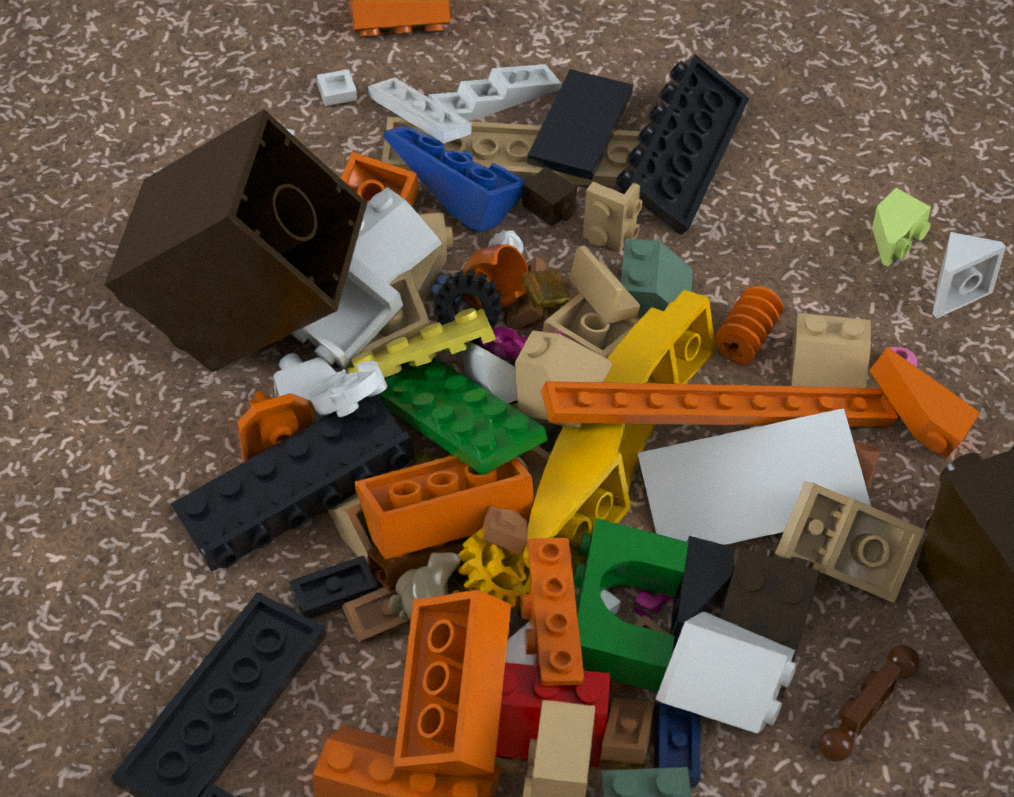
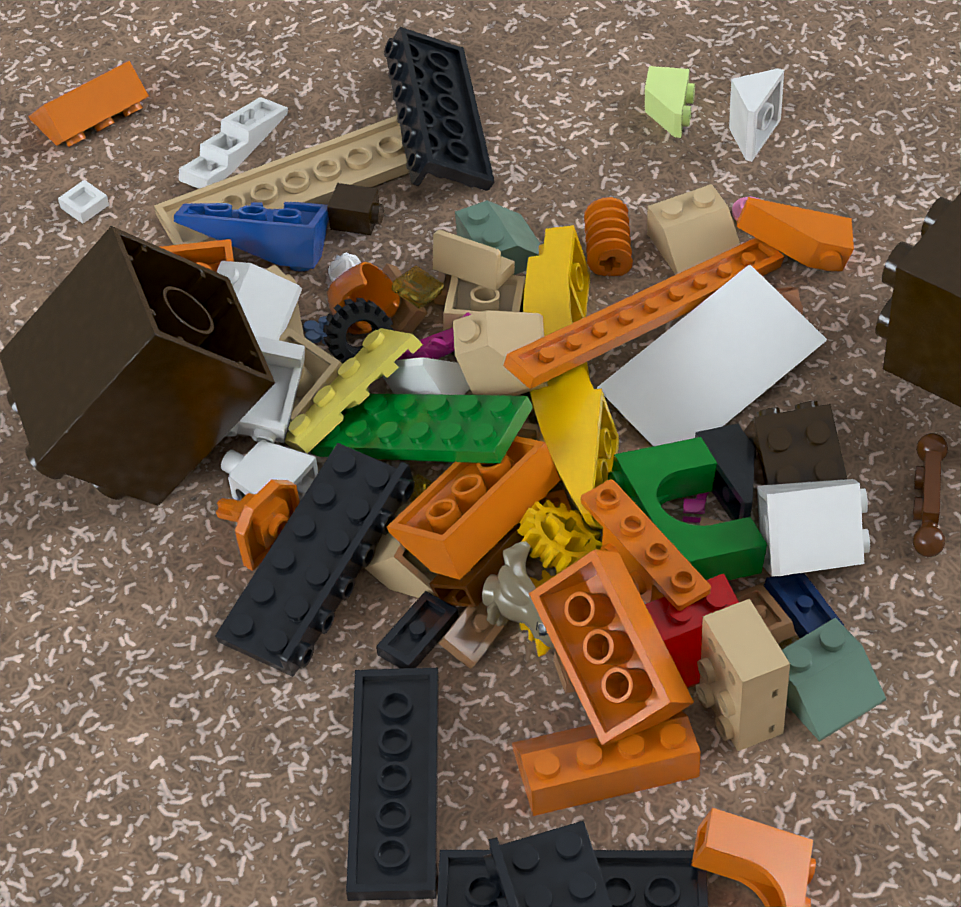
camera: 25 degrees left, 0 degrees up
(344, 390) = (318, 453): white plate -> none
(419, 110) = (181, 185): white tile -> none
(505, 529) = (550, 499): medium nougat plate -> none
(580, 124) = (337, 133): black tile -> none
(611, 215) = (425, 199): tan bracket -> none
(850, 541) = (824, 368): tan slope -> none

